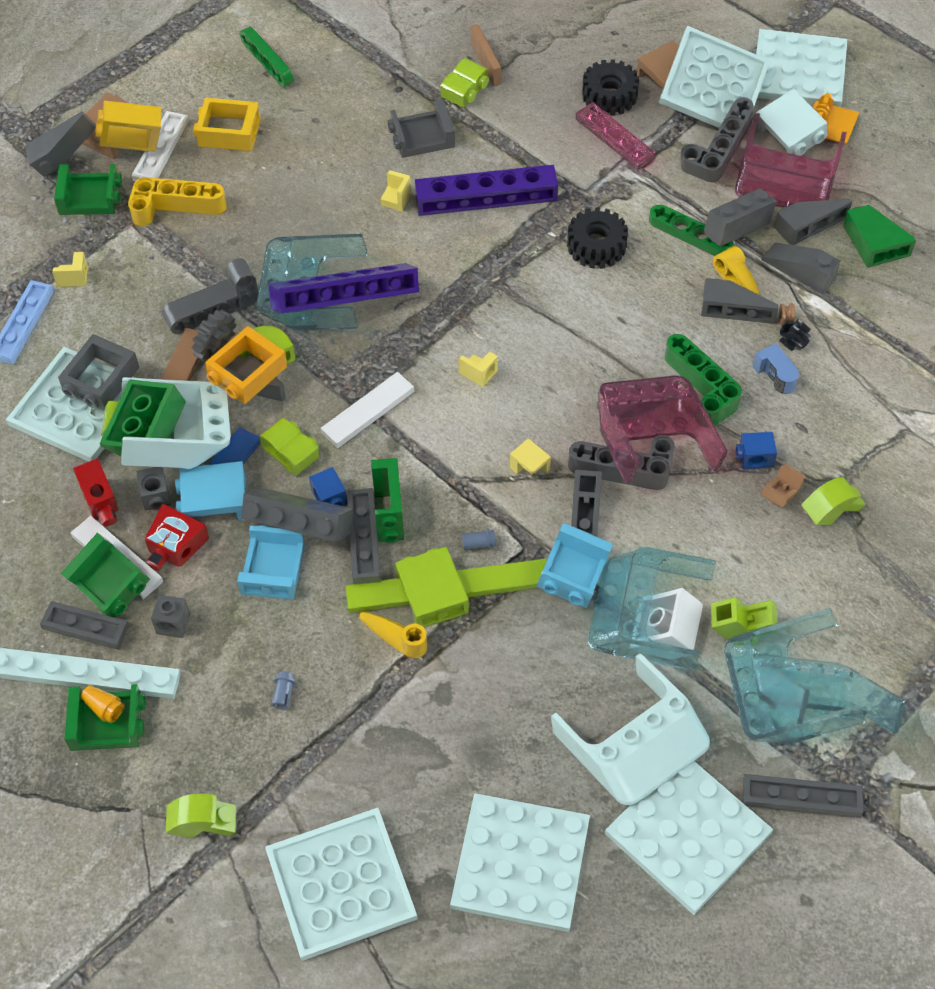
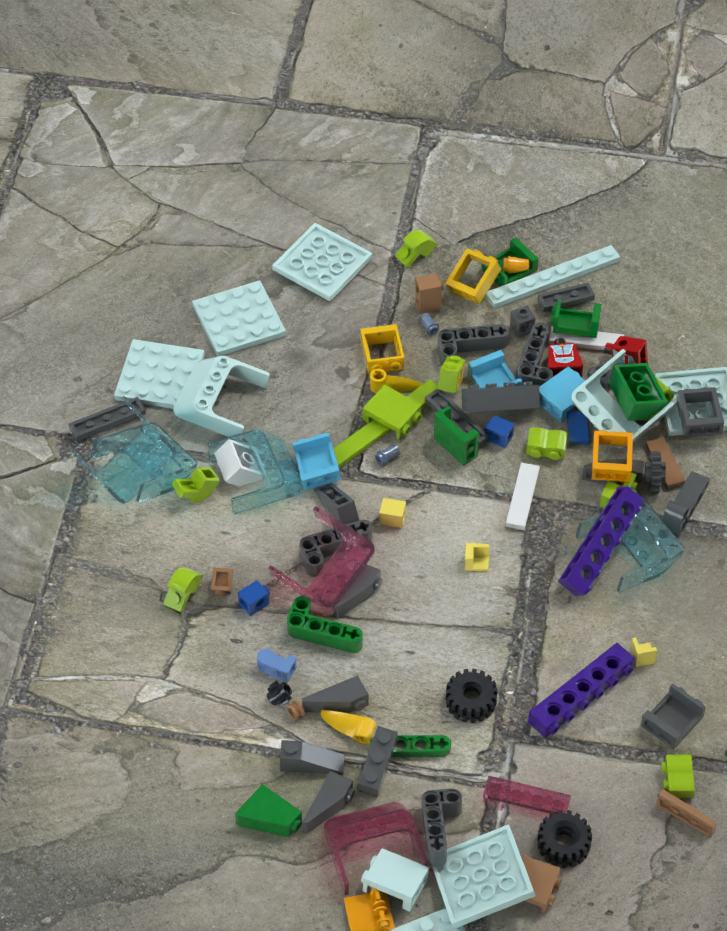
camera: 145 degrees right, 5 degrees down
(197, 561) = (529, 366): none -> dark grey beam
(200, 705) = (475, 295): none -> yellow window
(222, 616) = (471, 339): none -> dark grey beam
(252, 717) = (428, 293): none -> medium nougat brick
(325, 582) = (451, 374): none -> lime brick
(361, 706) = (388, 334): none -> yellow window

